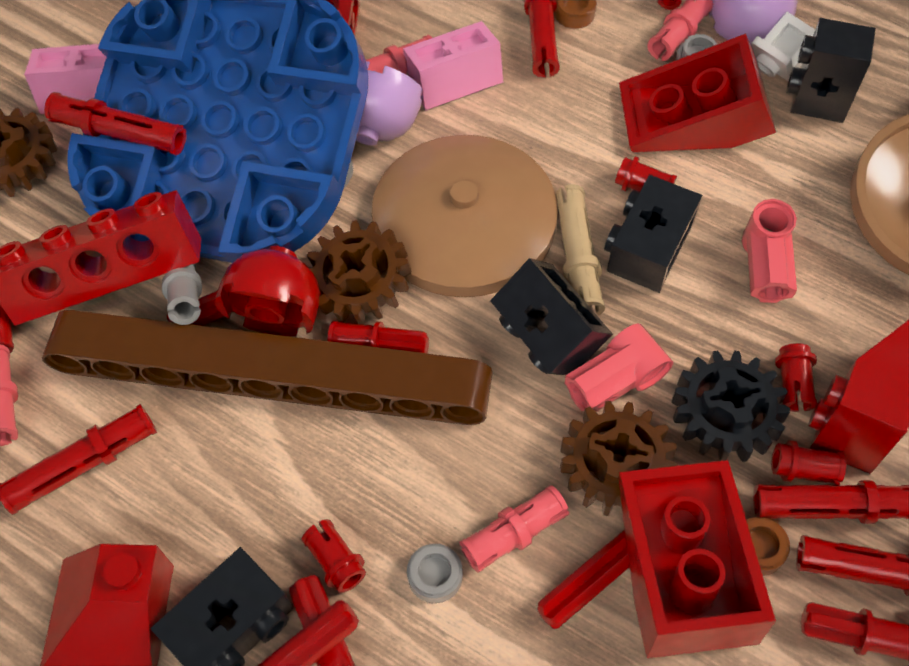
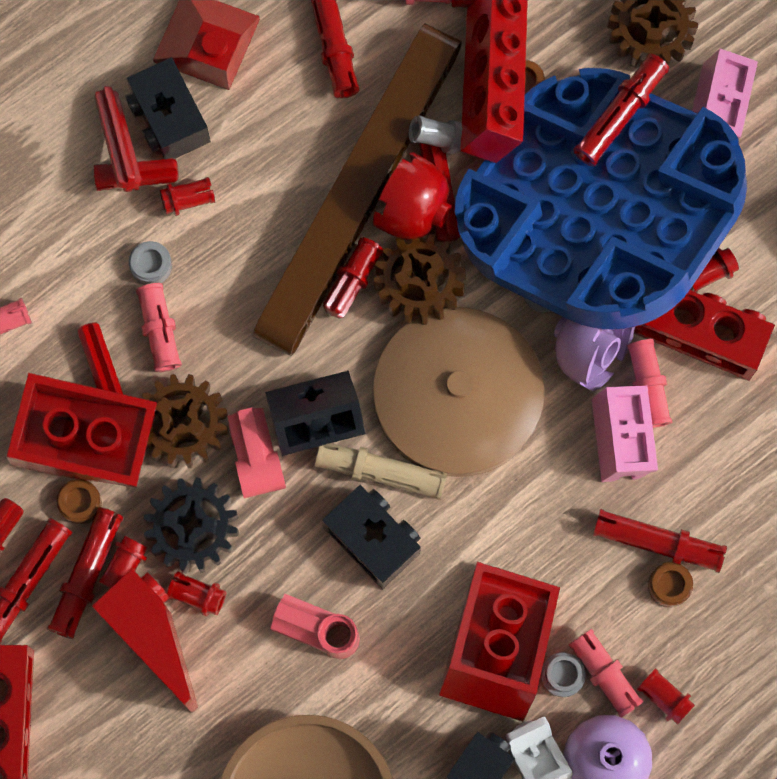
camera: 105 degrees right, 15 degrees up
(634, 174) = (434, 558): red pin -> none

